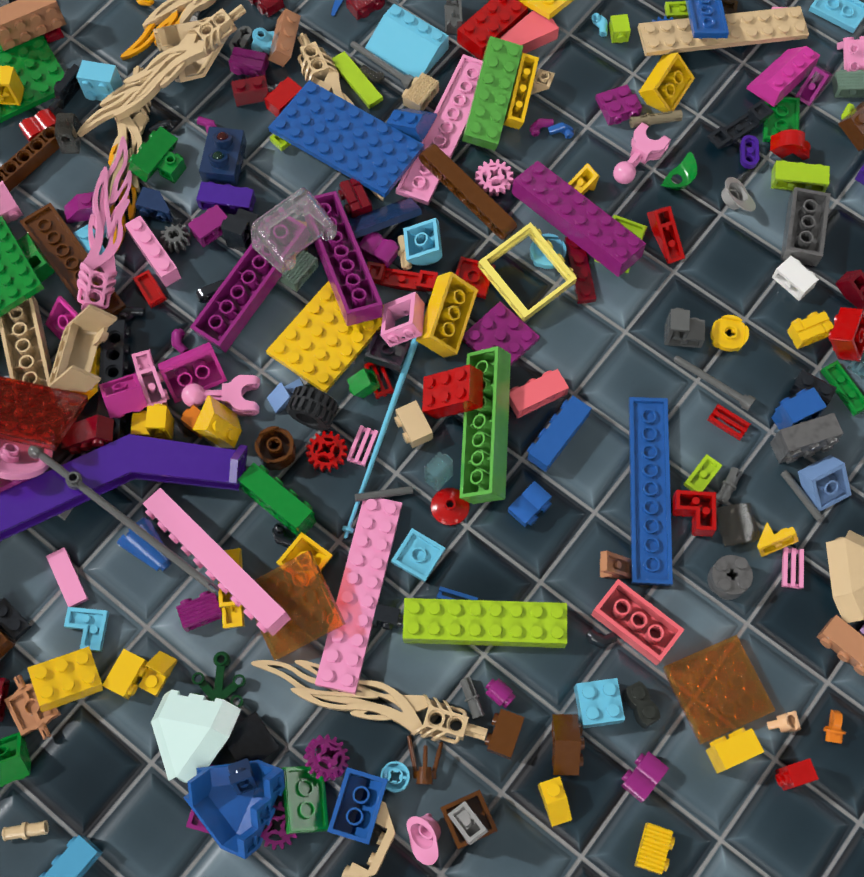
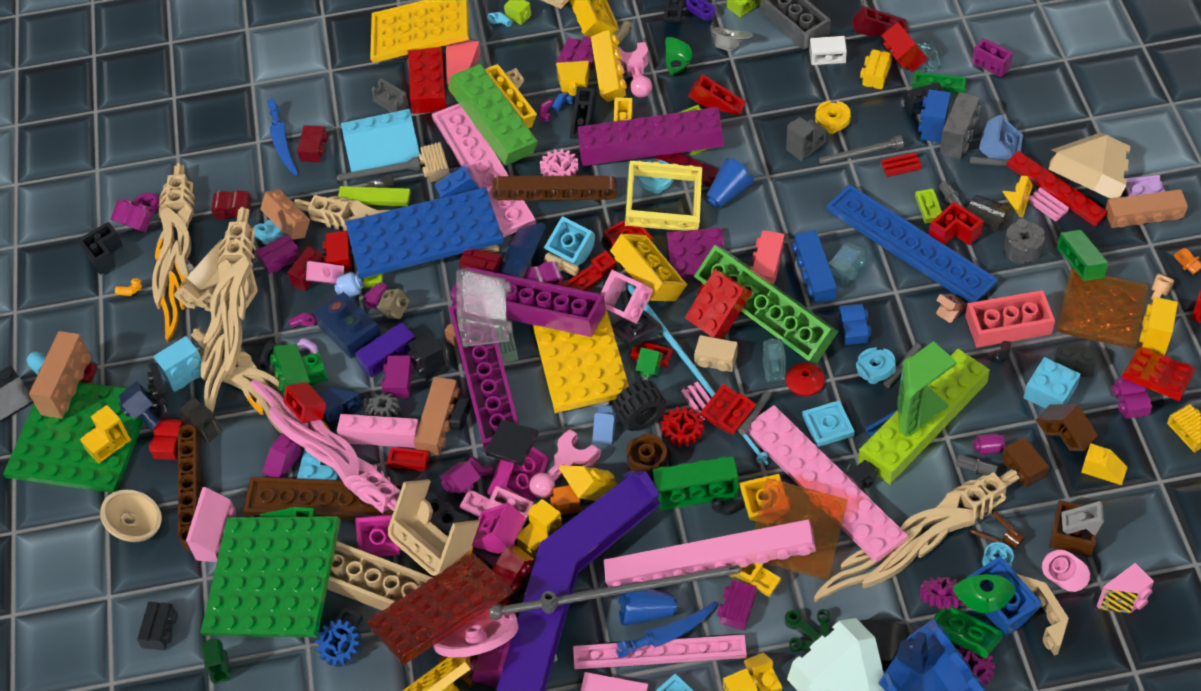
camera: 45 degrees left, 15 degrees down
(41, 85) = (137, 403): none -> dark blue brick
(120, 586) = (672, 652): none -> bright pink plate
(127, 184) = (304, 402): none -> red brick
(137, 580) = (665, 633): none -> blue sword
(150, 335) = (459, 477): none -> magenta brick
(190, 148) = (309, 345): none -> lavender arm
(200, 274) = (437, 415): none -> nougat brick
(201, 346) = (512, 442): none -> black tile
(254, 105) = (323, 272): none -> bright pink plate
(259, 129) = (350, 284): none -> light blue head
(268, 154) = (374, 296): none -> magenta brick
(268, 170) = (393, 303): none -> dark tan brick
(347, 806) = (975, 598): none -> green piece
(366, 472) = (727, 409): none -> red slope
(475, 608) = (916, 400): none -> bright green windscreen
(503, 560) = (872, 373): none -> medium azure plate
(524, 570) = (889, 381): none -> dark grey bar
(563, 151) = (583, 109): none -> black slope
(584, 308) = (728, 183): none -> blue cone
(586, 455) = (847, 262): none -> clear light blue brick
(589, 119) = (573, 75): none -> yellow torso
(619, 133) = (608, 65): none -> yellow brick
(685, 783) = (1159, 373): none -> red plate
(756, 635) = (1082, 255): none -> green brick
(815, 563) = (1057, 188): none -> red plate

